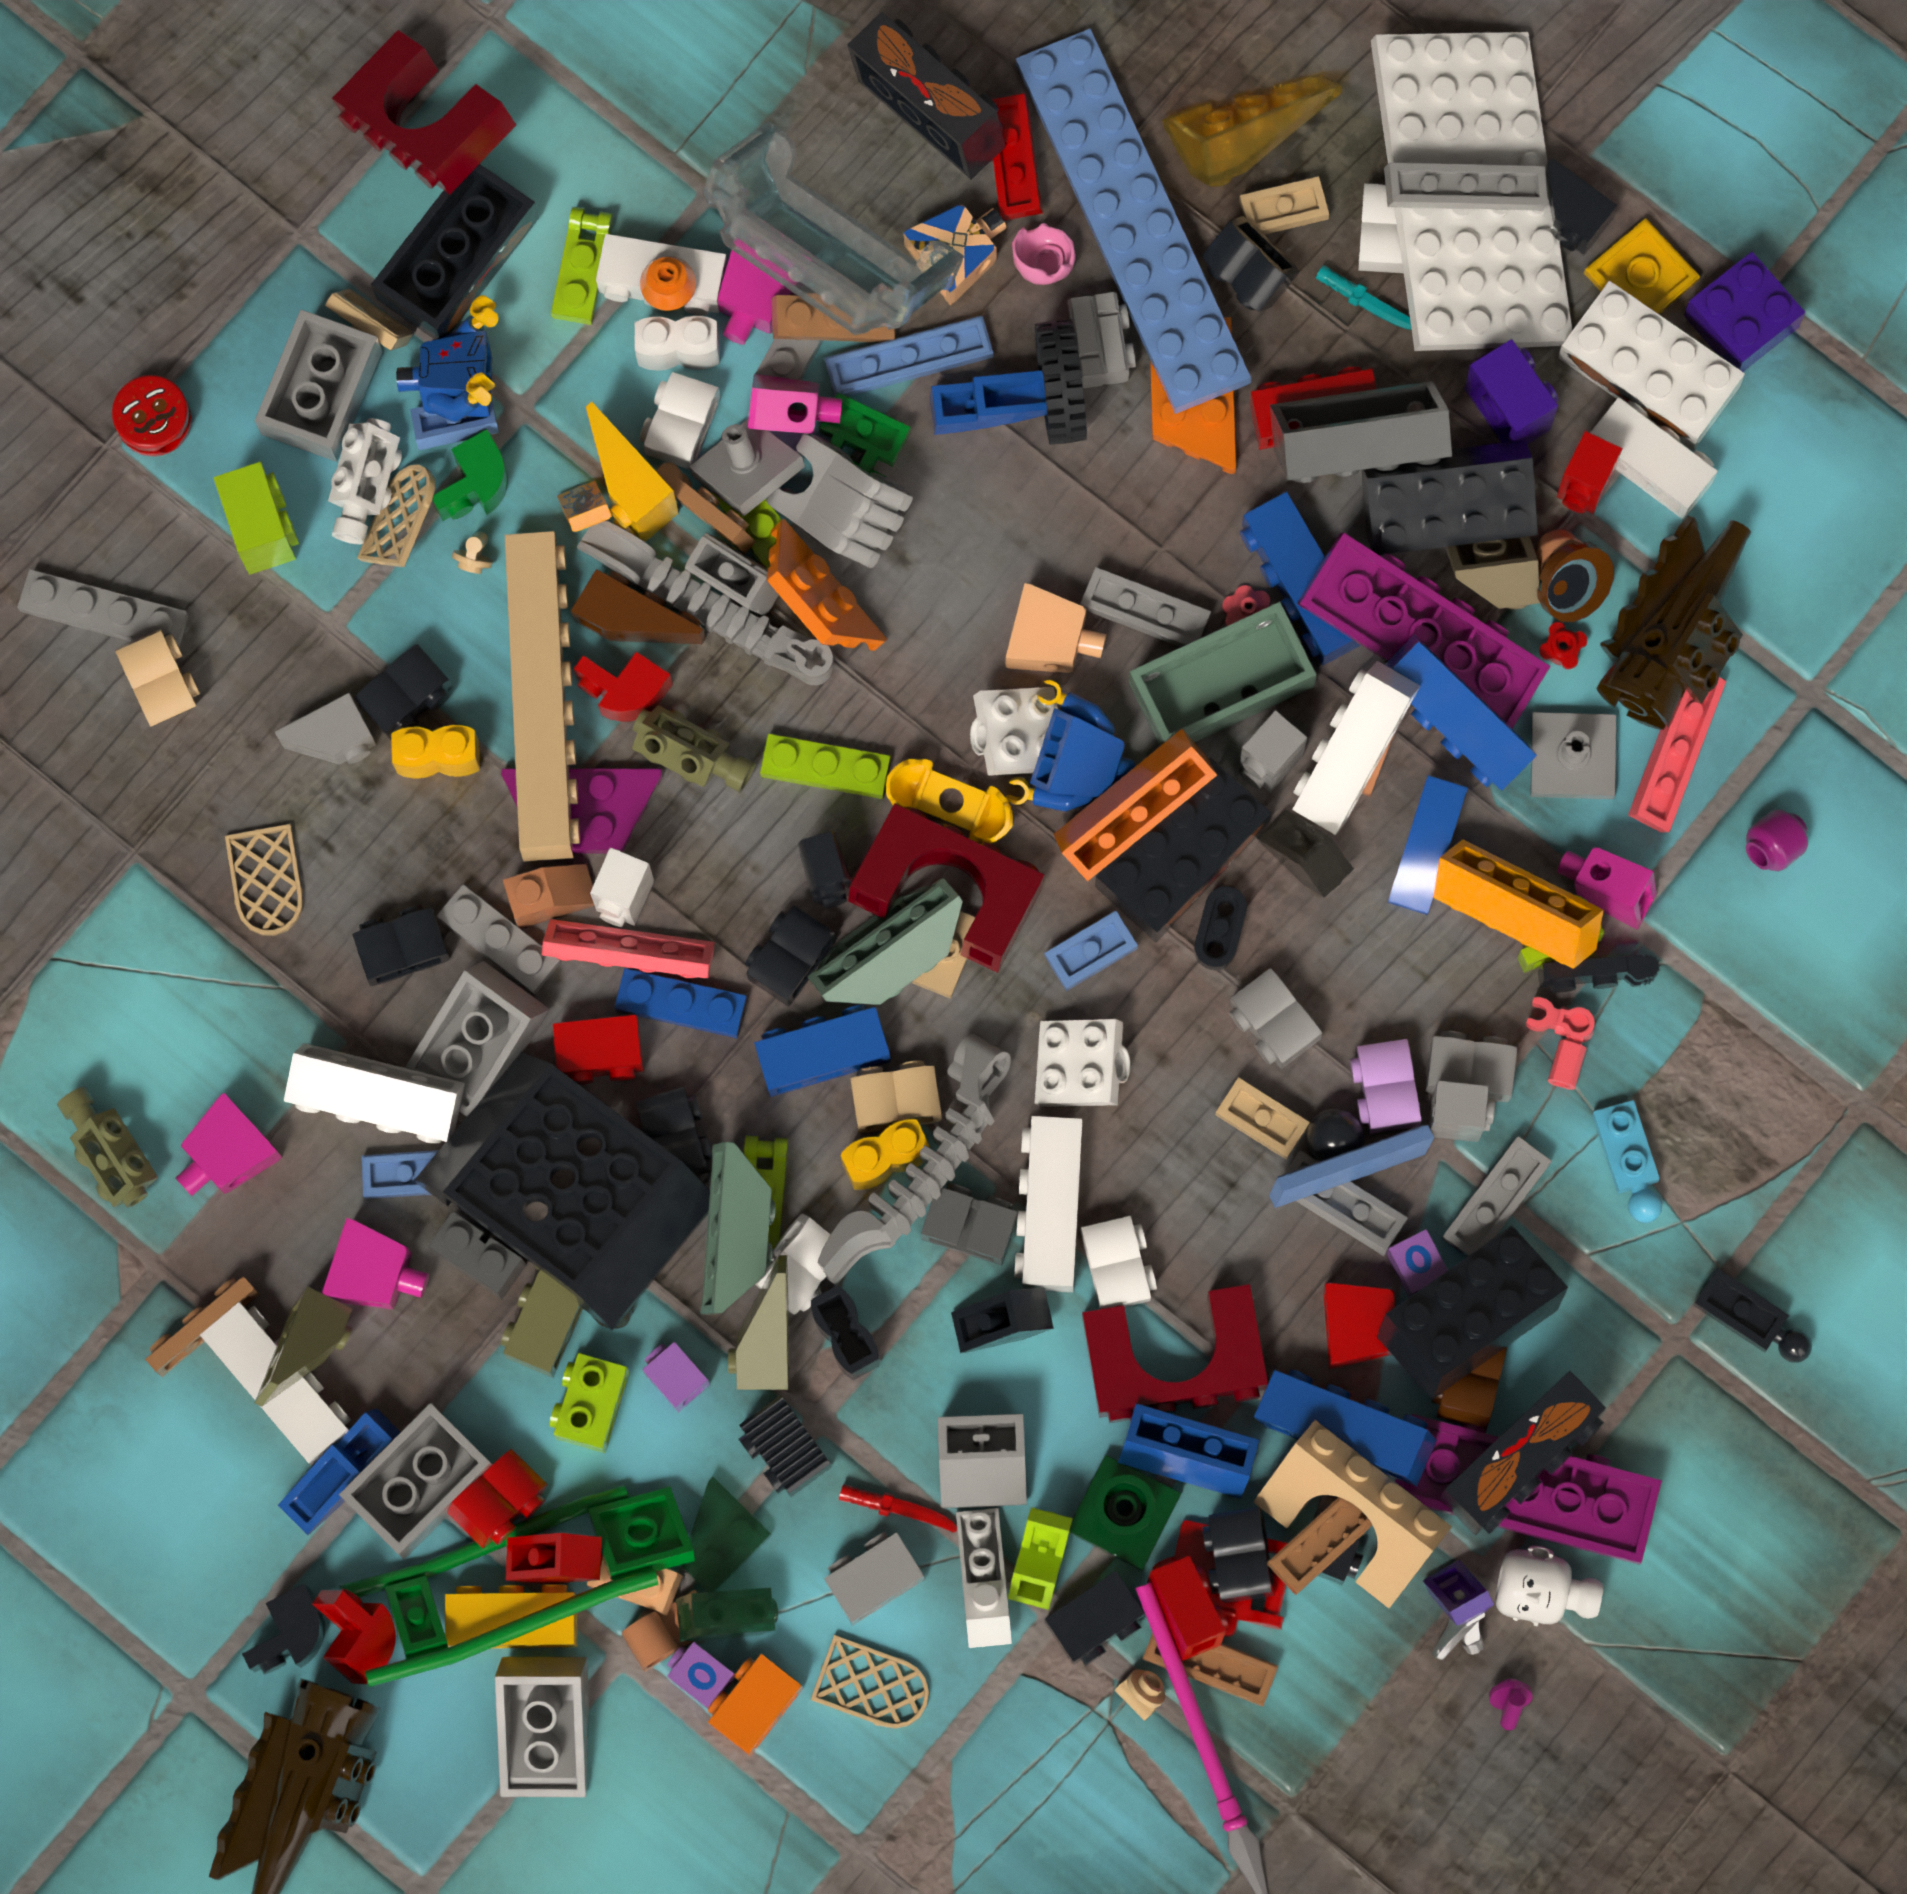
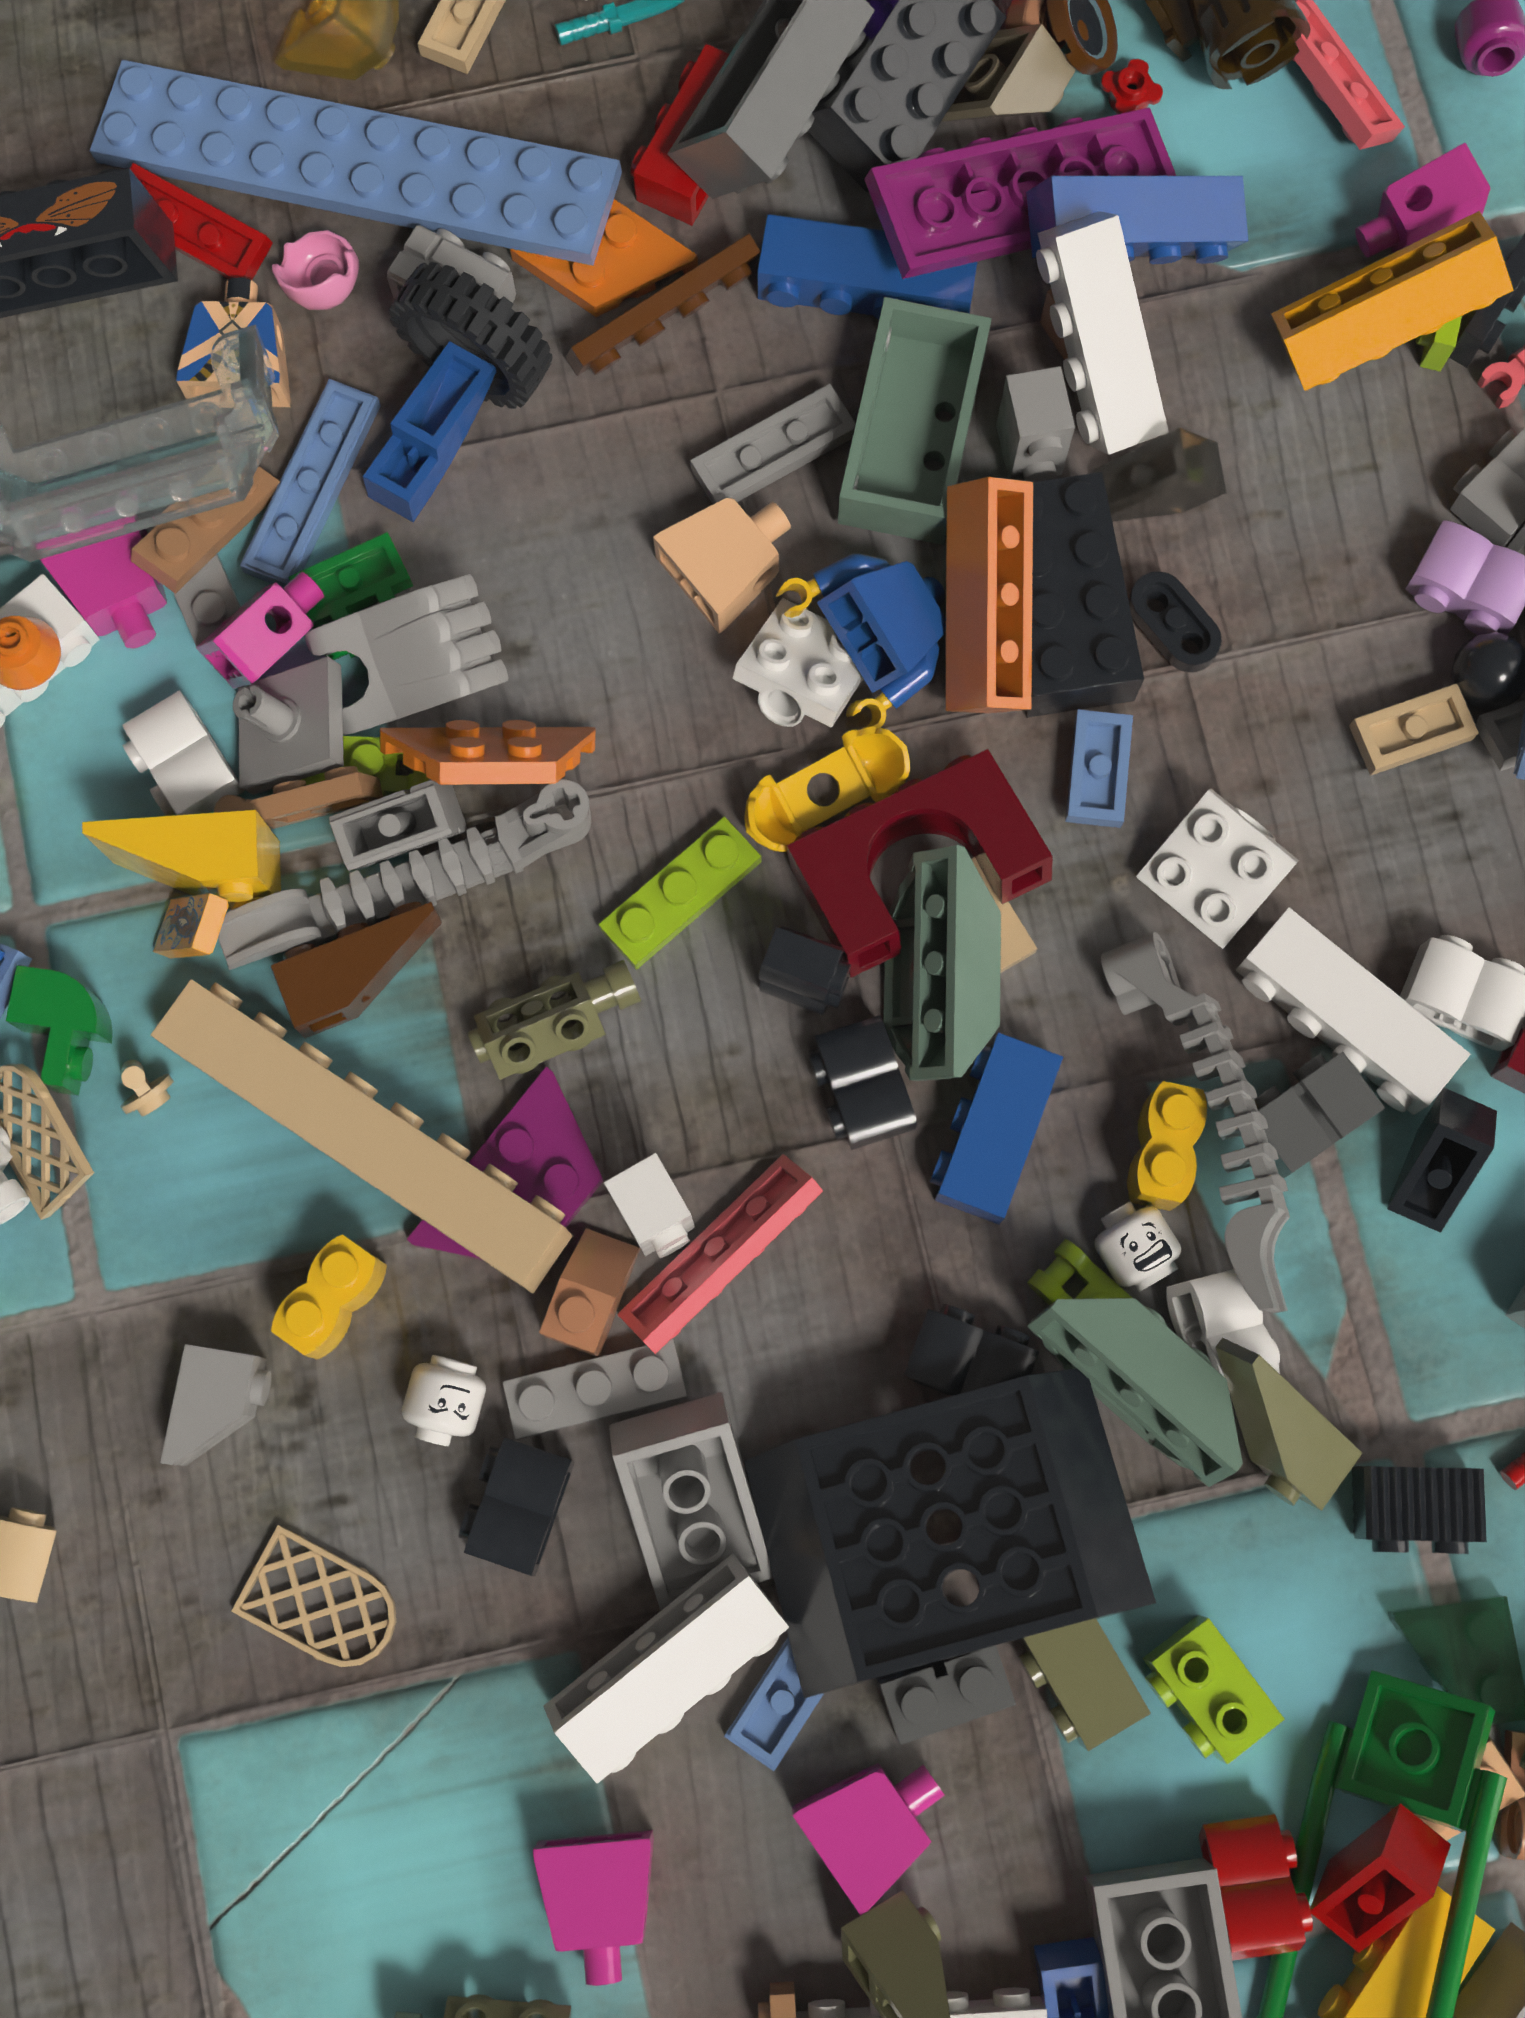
camera: 55 degrees left, 0 degrees up
(404, 691) = (234, 1280): black brick -> none
(427, 858) = (443, 1399): none -> white head
(599, 1048) = (808, 1371): red brick -> none
(636, 688) = (437, 1038): red brick -> none
(667, 343) = (102, 690): white brick -> none
(674, 1375) = (1249, 1568): medium lavender brick -> none
(680, 1003) = (822, 1242): blue plate -> none
(814, 1182) = (1137, 1246): none -> white head
(850, 1341) = (1358, 1344): black brick -> none
(895, 1096) = (1109, 1089): tan brick -> none
(1200, 482) = (682, 296): none -> reddish brown plate
(1244, 595) = (847, 356): coral plant -> none
(1250, 264) = (498, 83): black brick -> none
(1274, 1019) = (1316, 638): light grey brick -> none
(1426, 843) = (1242, 355): blue slope -> none
(1573, 755) = (1261, 148): light grey tile -> none

